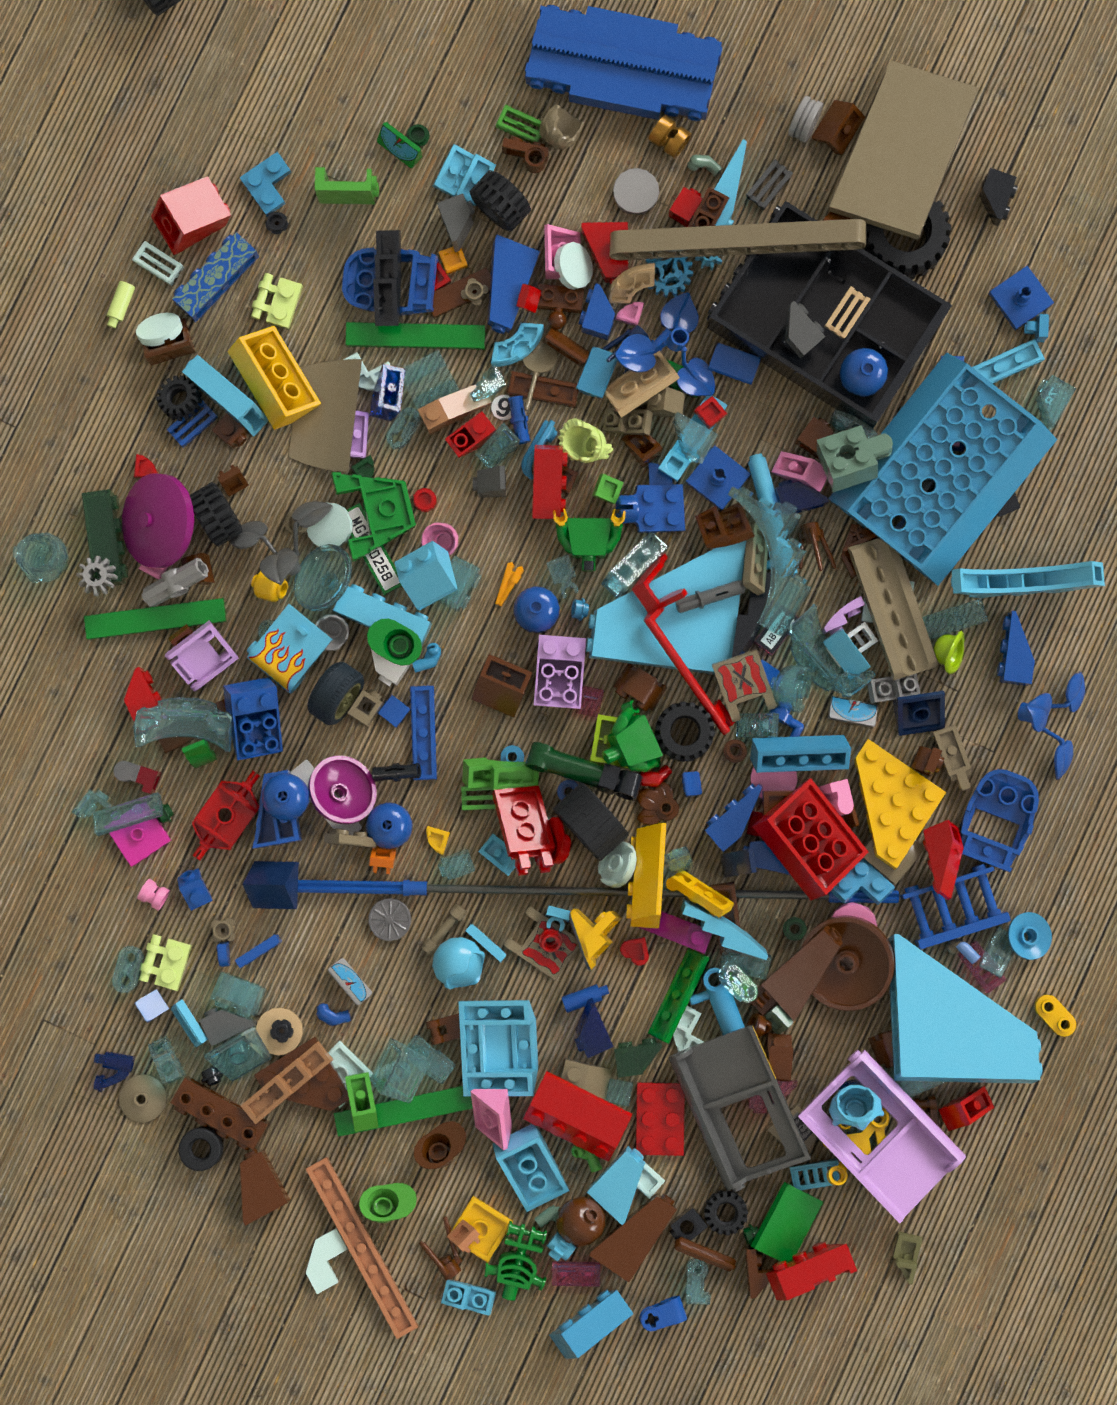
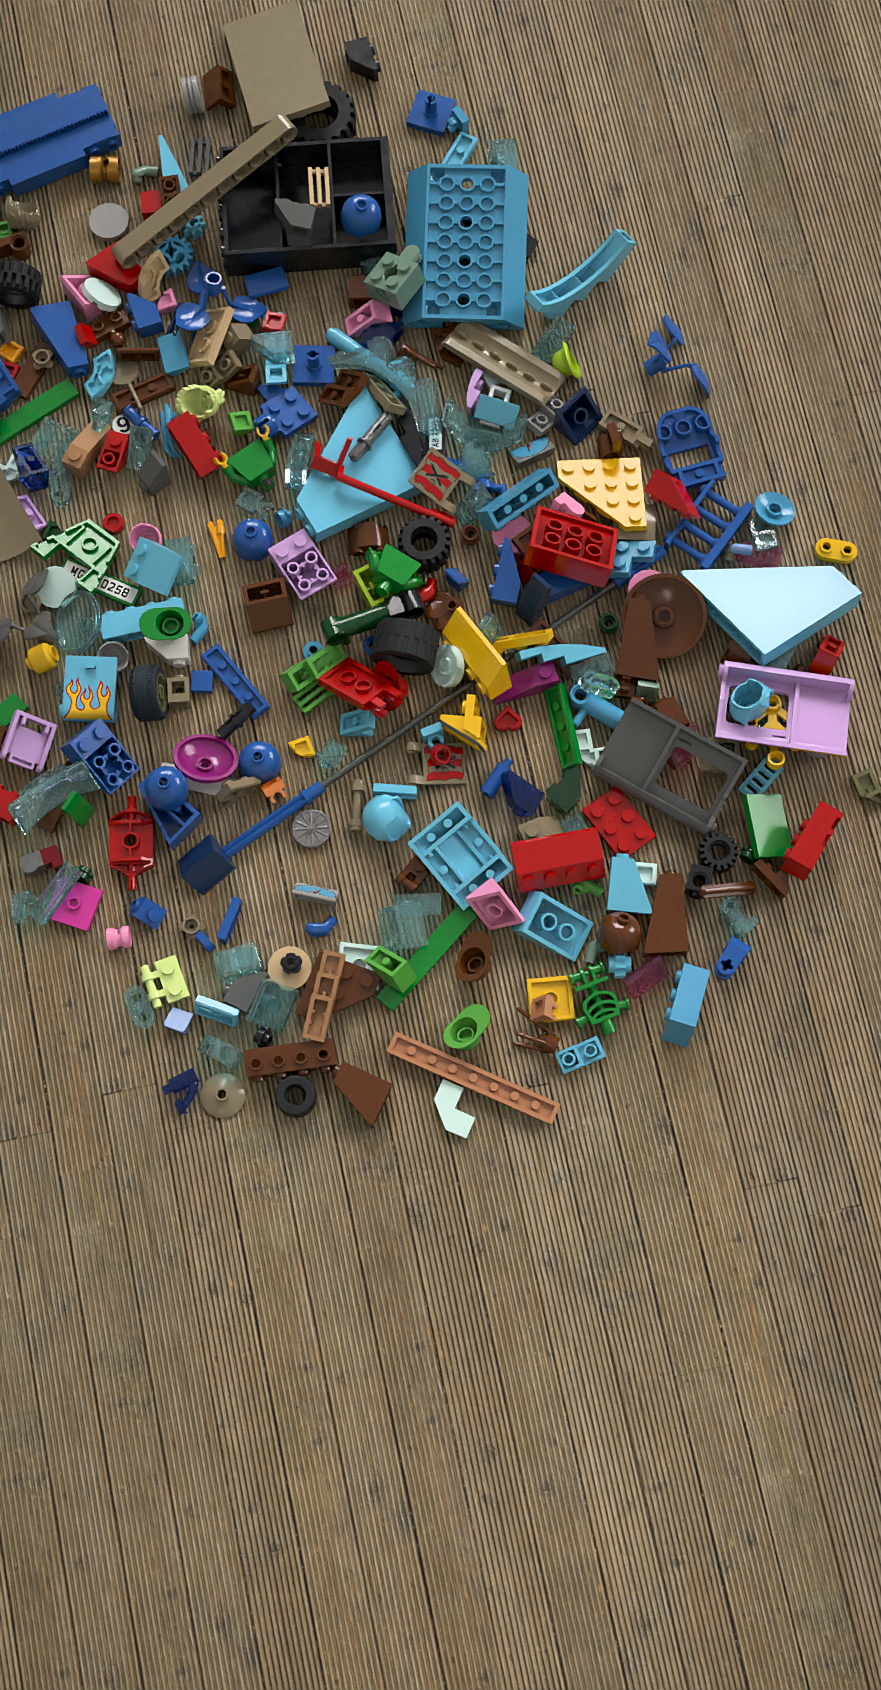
camera: 40 degrees left, 10 degrees down
(1017, 659) = (615, 335): blue slope -> none

